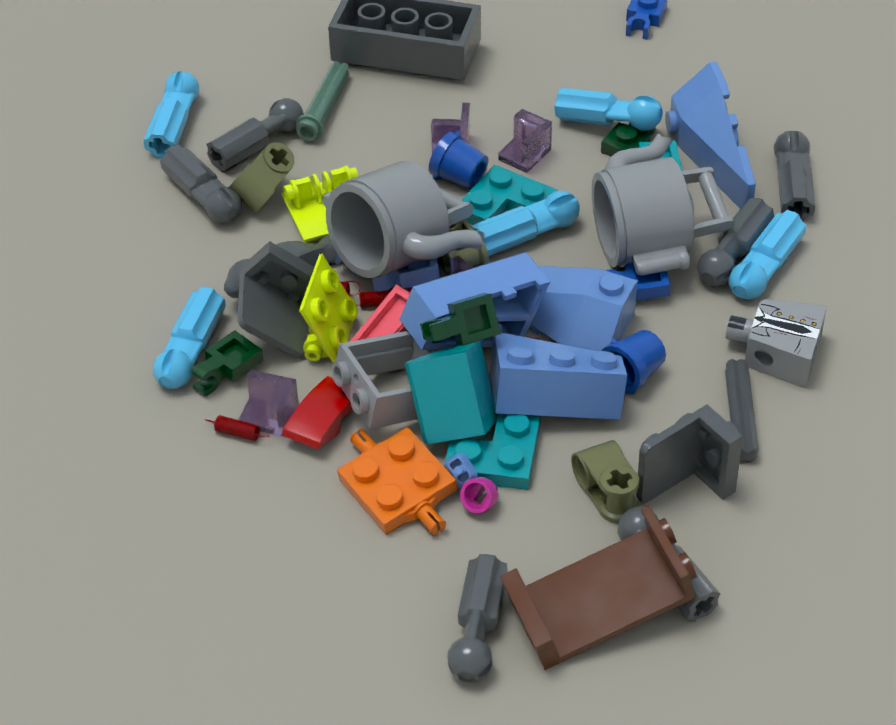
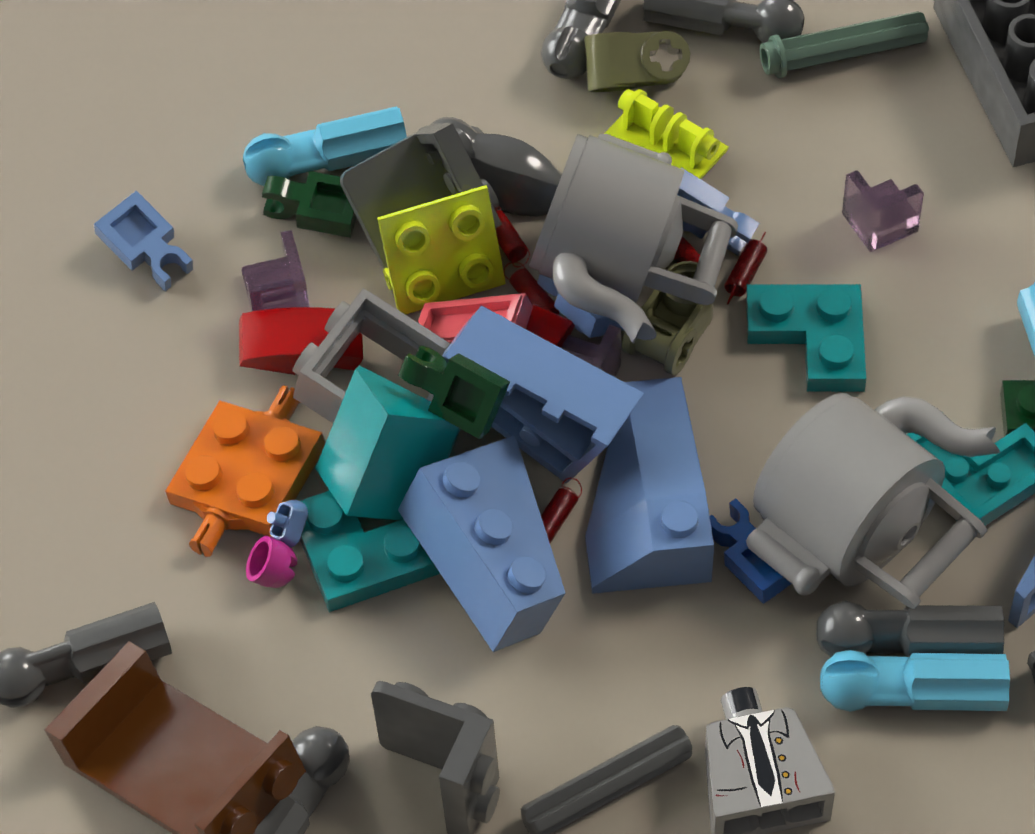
camera: 60 degrees right, 10 degrees up
(172, 457) = (139, 235): none -> medium blue plate
(237, 428) = (229, 272): red piece -> none
(457, 161) = (826, 240): blue piece -> none
(524, 223) = (760, 368): medium azure piece -> none
(530, 141) = (932, 304): clear purple panel -> none
(606, 479) = (381, 657): olive piece -> none
(641, 356) = (598, 615): blue piece -> none

